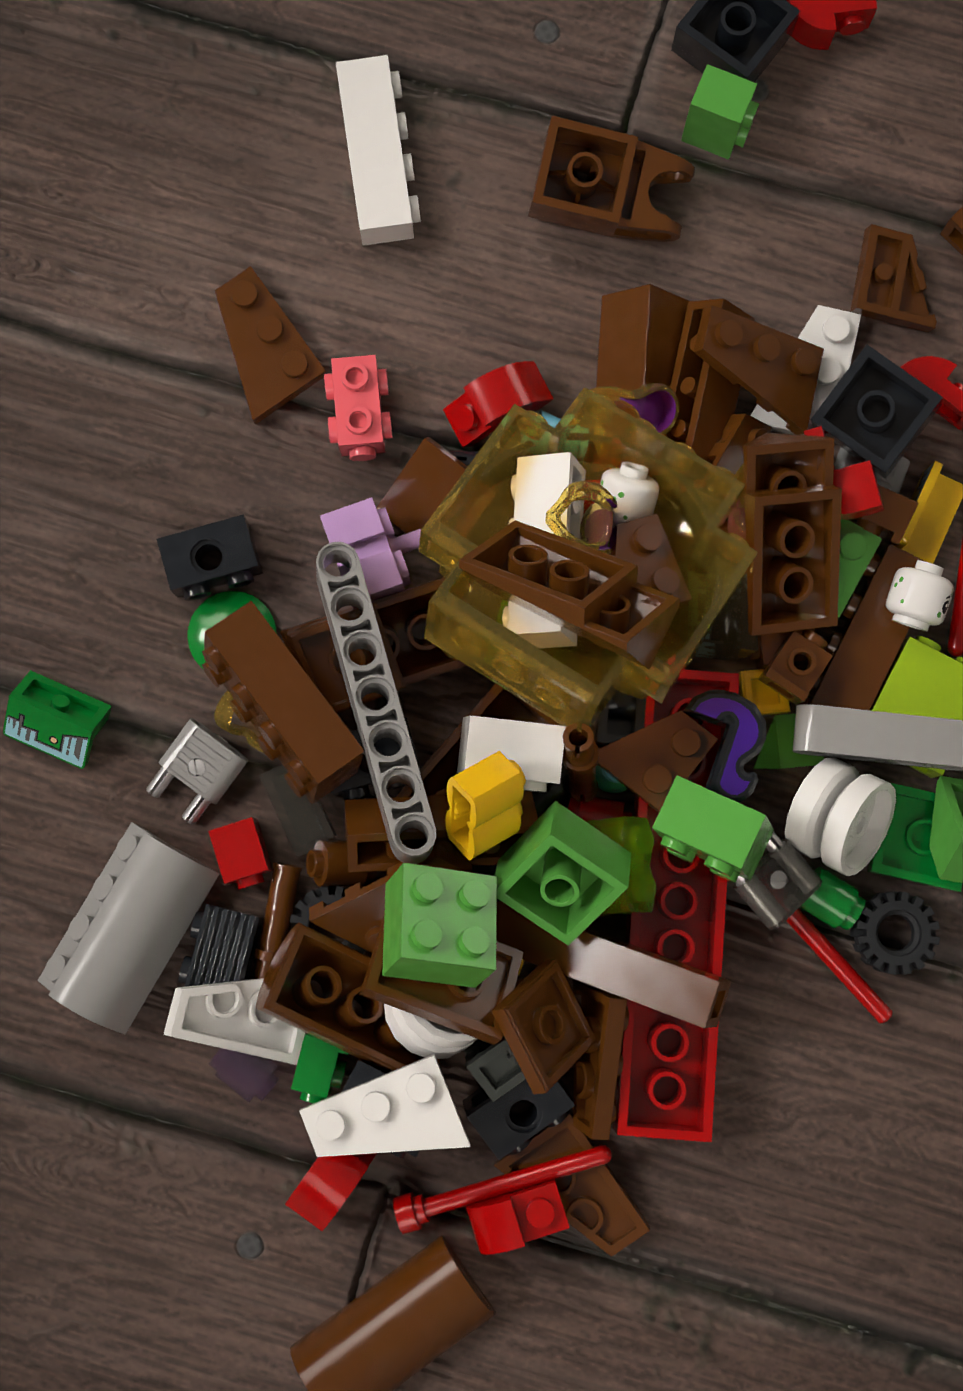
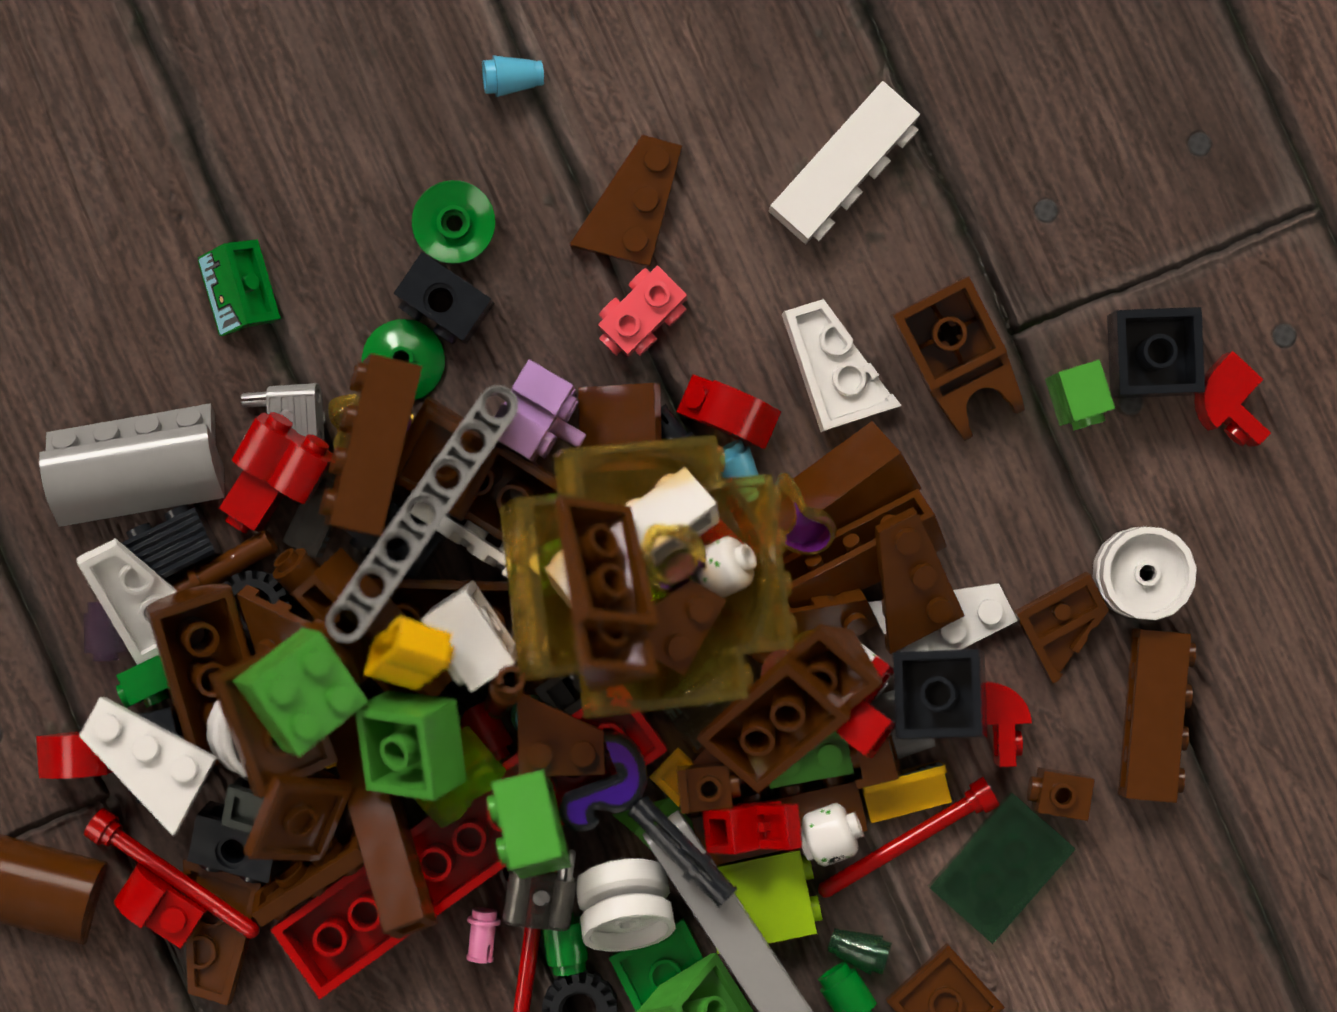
camera: 50 degrees right, 5 degrees up
(75, 354) = (510, 75): none -> medium azure cone
(140, 481) = (441, 204): none -> green dish
(227, 792) = (283, 456): none -> red brick
(433, 695) = (468, 535): none -> white wing
(537, 296) = (832, 368): none -> white wing
(765, 963) = (482, 935): none -> bright pink pin
(856, 721) = (718, 889): none -> black pin
(864, 651) = (752, 827): none -> red brick
(906, 178) = (1159, 553): none -> white wheel

